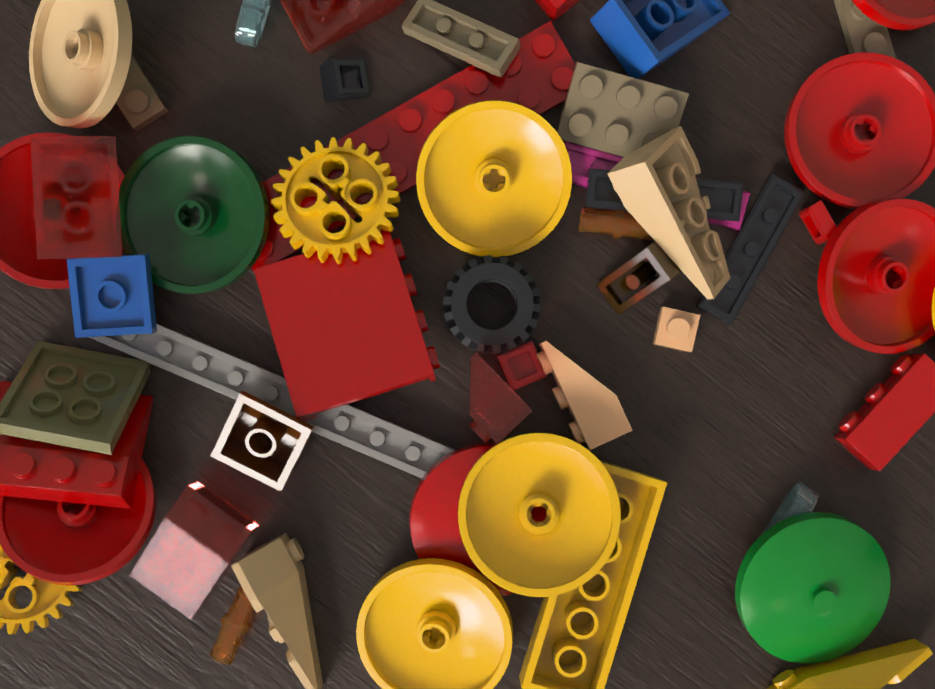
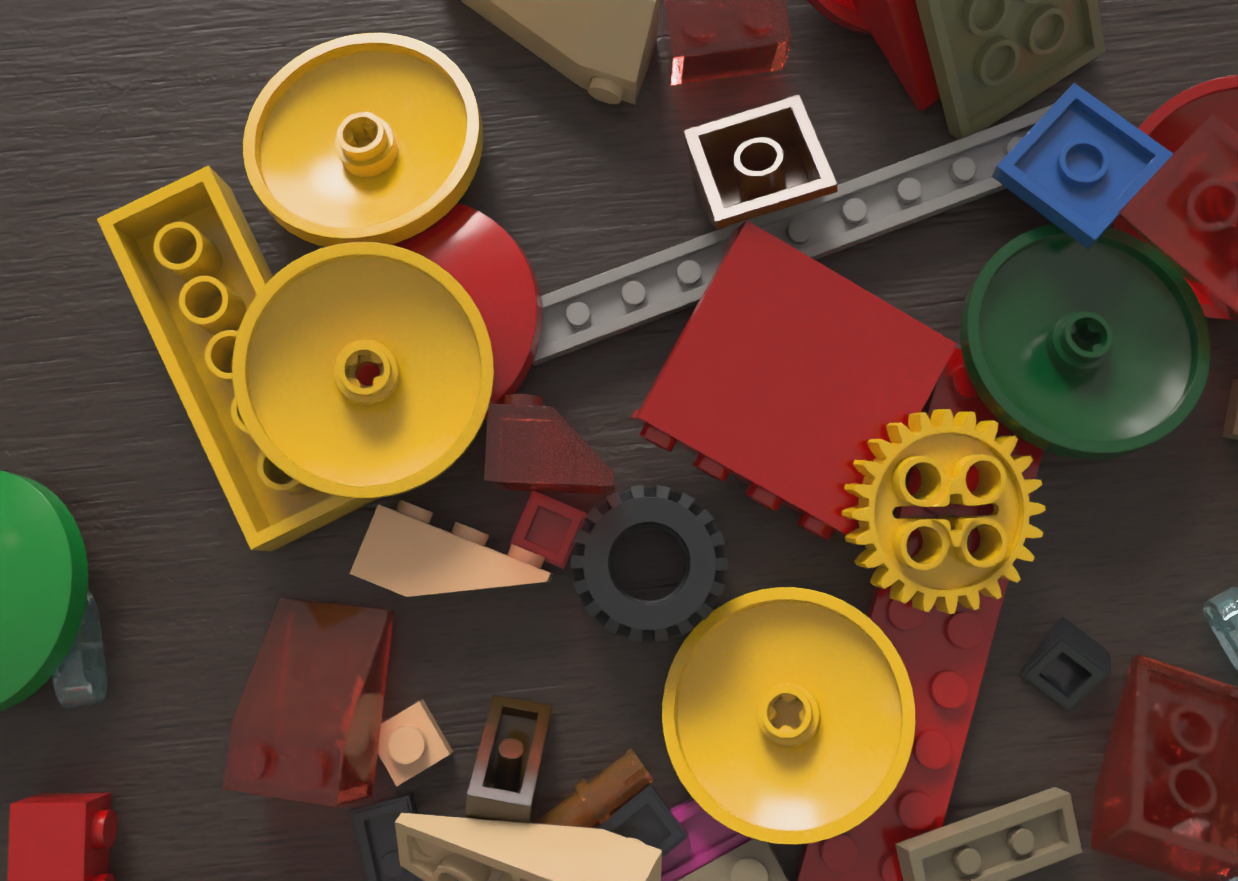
camera: 140 degrees right, 5 degrees down
(703, 387) = (313, 705): none -> clear red slope

